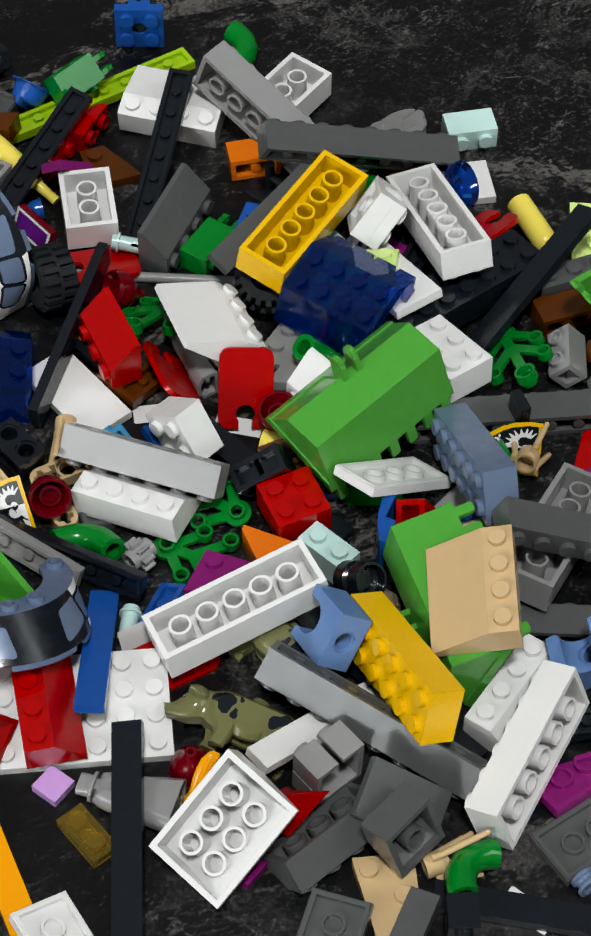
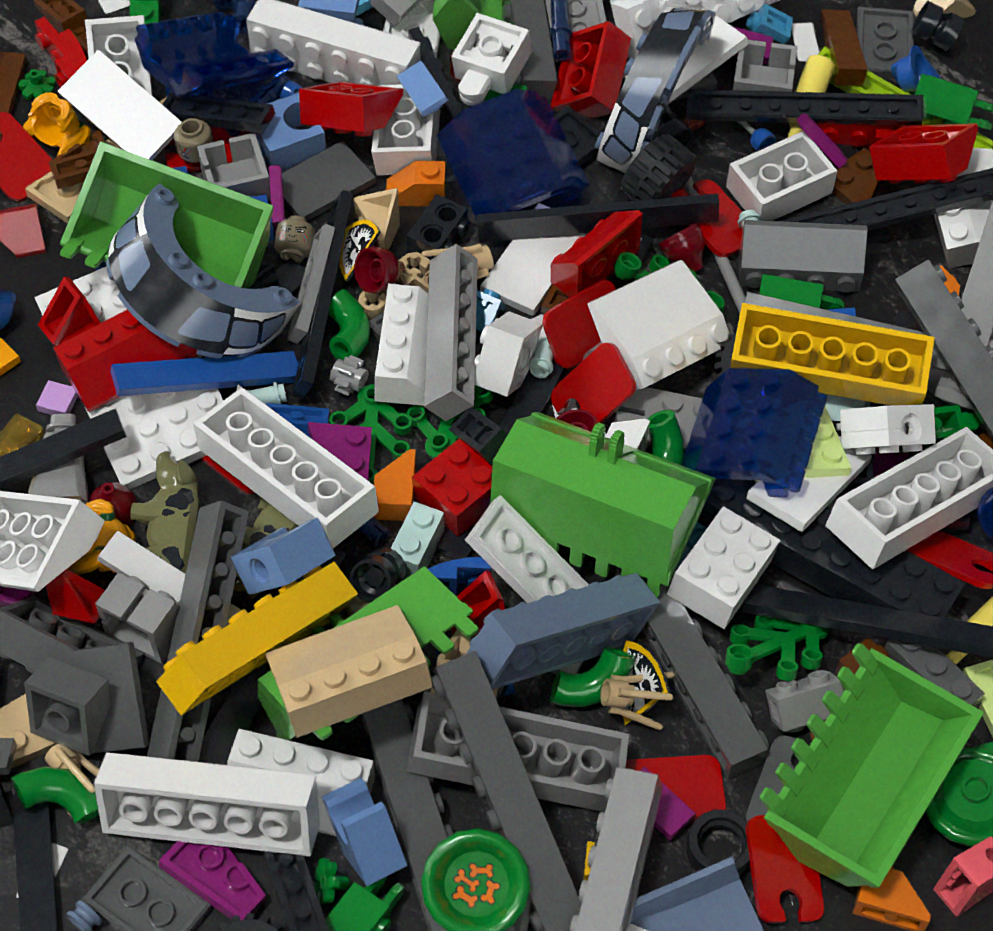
camera: 70 degrees right, 5 degrees up
(35, 227) = (732, 147): tile -> none
(128, 104) = (924, 153): none -> red slope
(519, 406) = (683, 663): black tile -> none

